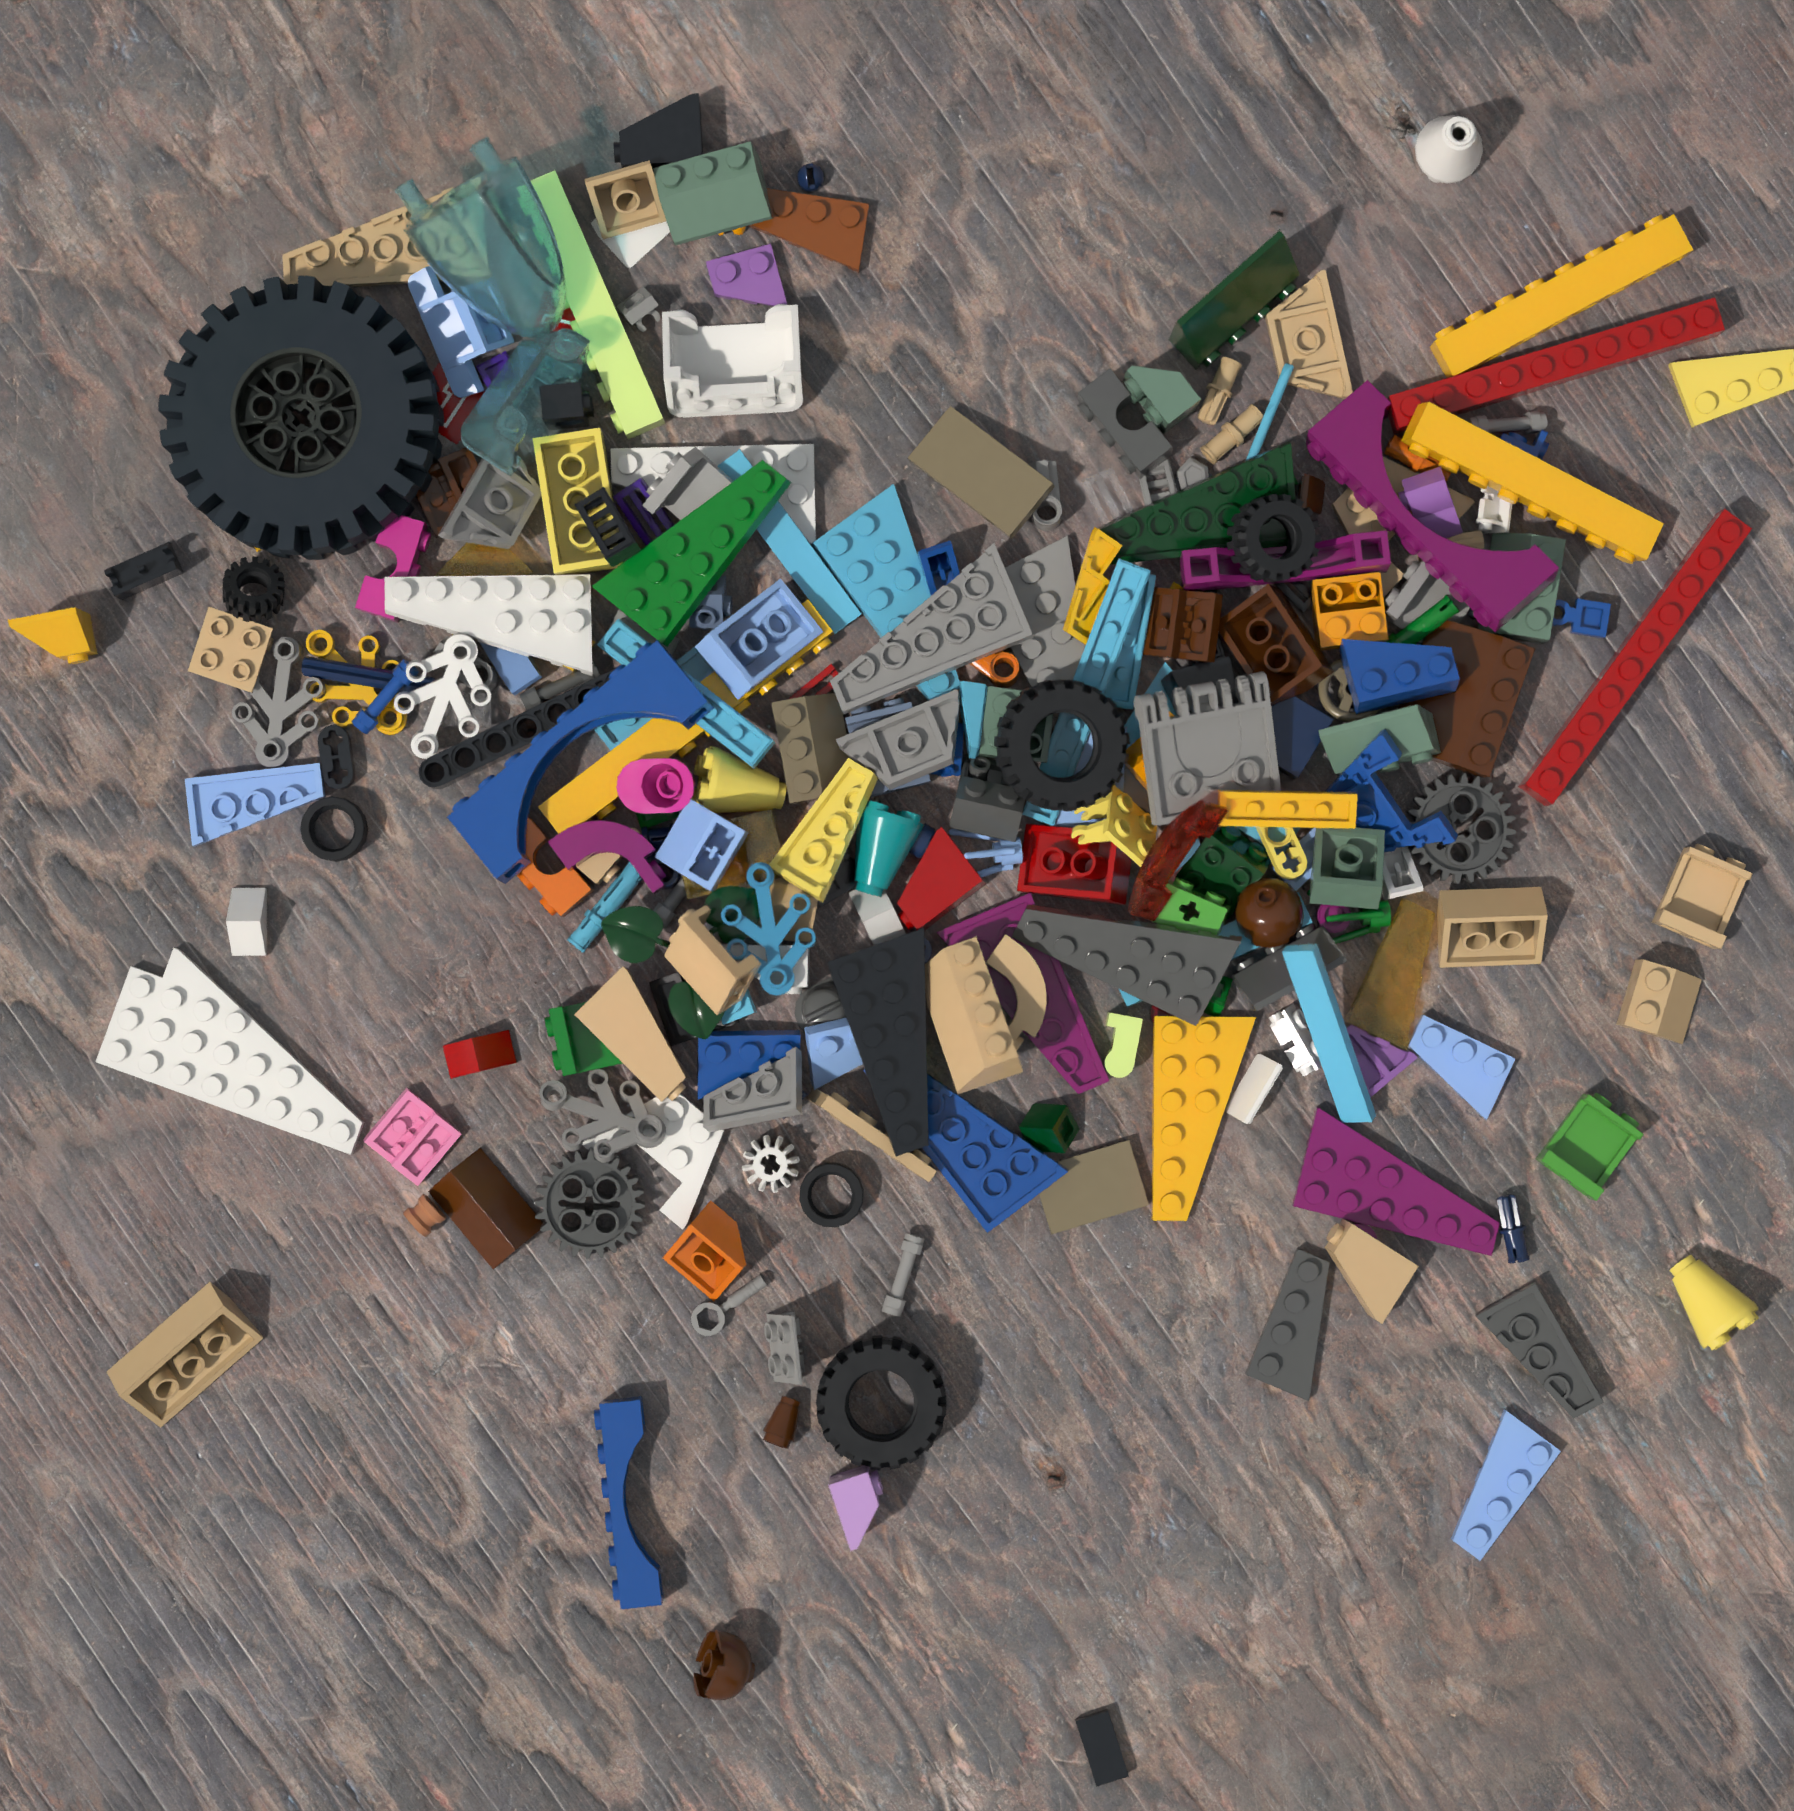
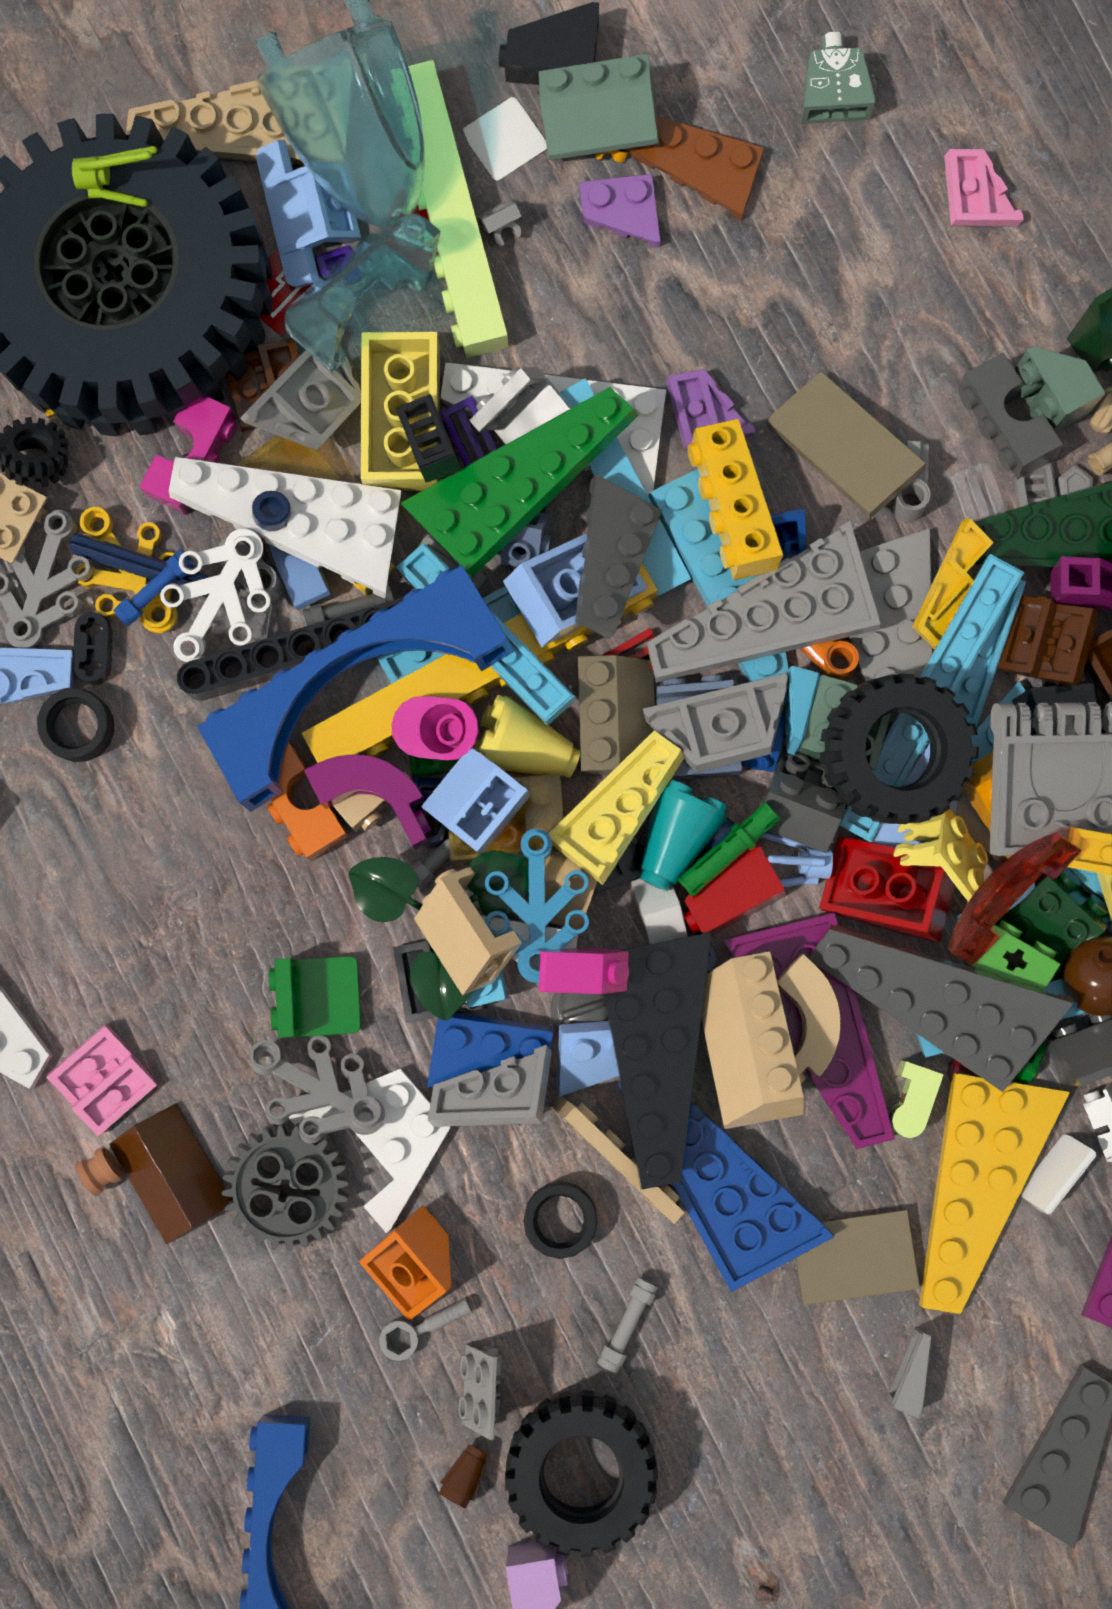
camera: 15 degrees right, 5 degrees down
(273, 335) = (94, 172): none -> lime plant
(479, 614) = (271, 510): none -> dark blue tile
(479, 1054) = (193, 998): red slope -> none
(566, 406) = (403, 303): black brick -> none
(609, 902) = (368, 847): medium azure pin -> none
(625, 199) = (504, 102): tan slope -> none
(631, 1032) = (362, 997): tan slope -> none
(732, 366) = (591, 296): white windscreen -> none
(781, 1159) = (483, 1175): white gear -> none
(789, 603) = (614, 550): none -> dark grey wing
(817, 174) = (696, 113): dark blue hinge -> none
(818, 978) = (583, 970): none -> dark pink slope
(850, 459) = (700, 404): none -> medium lavender wing
(888, 540) = (735, 500): none -> yellow brick
(926, 133) = (836, 84): none -> sand green torso
(928, 853) = (730, 848): none -> green pin
(1049, 1127) = (819, 1181): dark green panel -> none
(1068, 217) = (976, 191): none -> bright pink wing
(1150, 1287) = (909, 1383): none -> light grey slope

